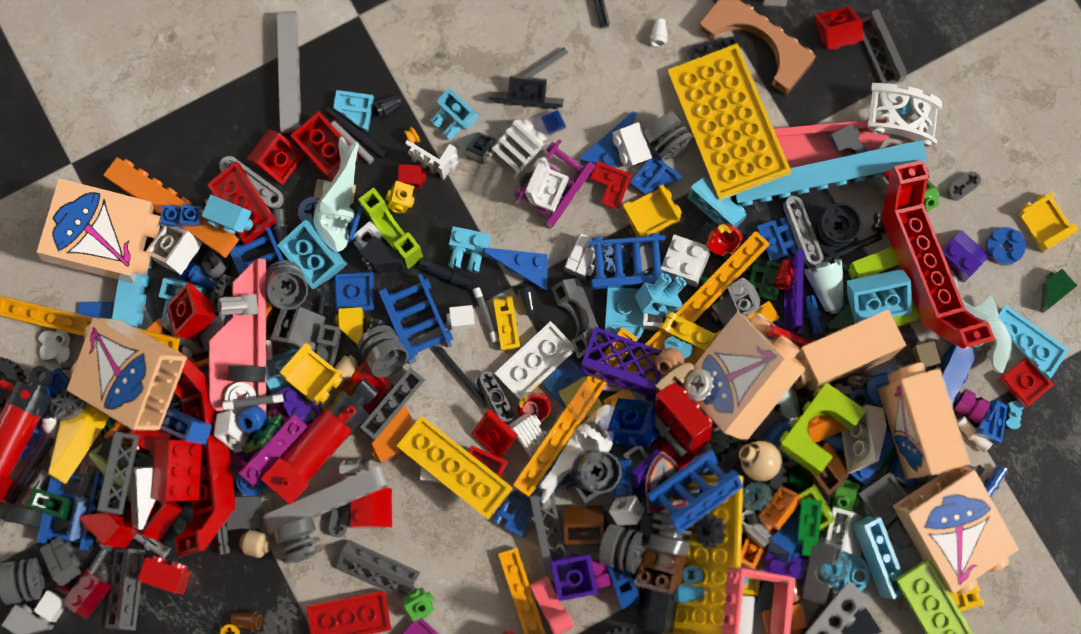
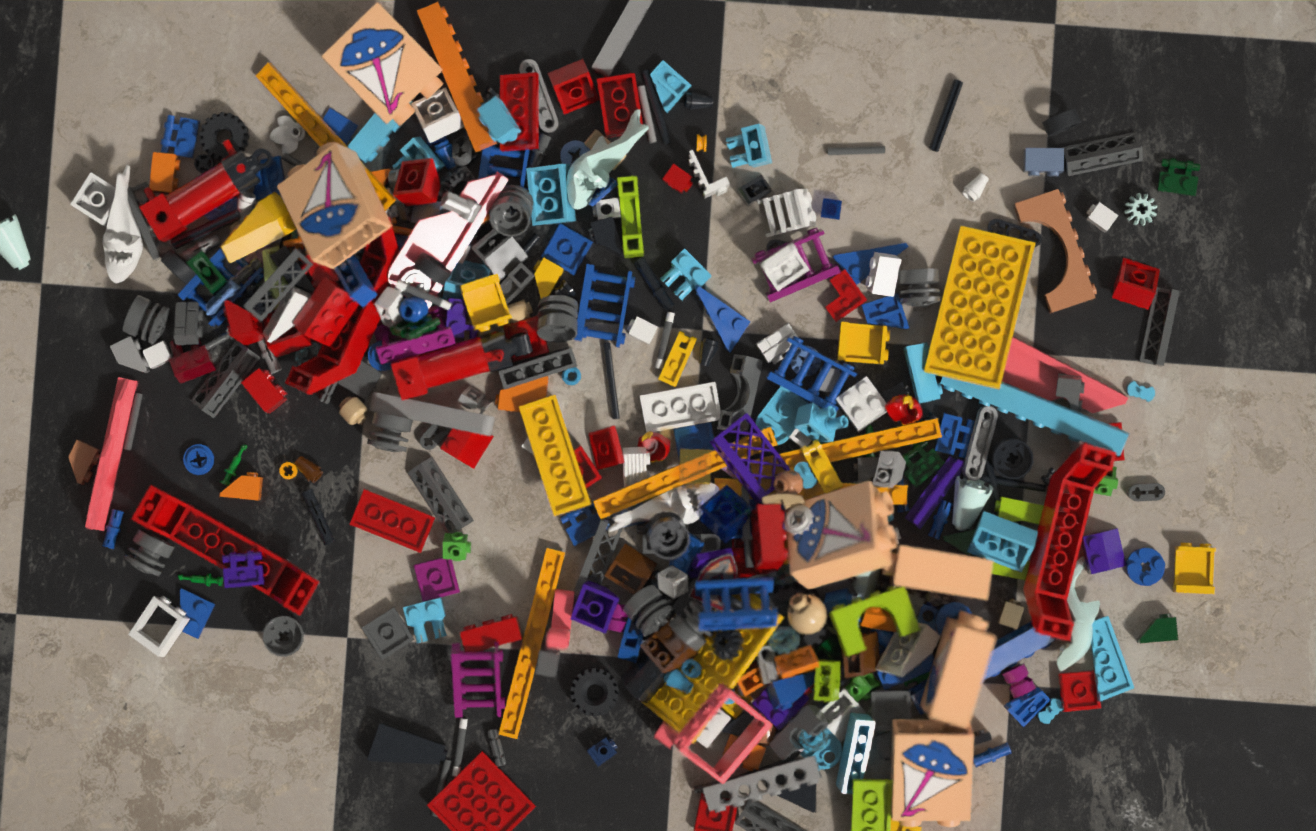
camera: 35 degrees right, 10 degrees up
(67, 405) = (269, 196): dark grey wheel -> none
(180, 216) = (460, 94): blue slope -> none
(400, 197) = (656, 192): yellow brick -> none
(421, 390) = (577, 376): none -> dark azure plate
(483, 387) = (633, 412): black beam -> none
(526, 91) = (824, 167): black bracket -> none
(776, 332) = (901, 529): red axle -> none
(784, 277) = (937, 471): red cone -> none
(809, 524) = (811, 690): green hinge -> none
(927, 113) = (1132, 373): white fence -> none
(983, 443) = (1003, 698): white pin -> none

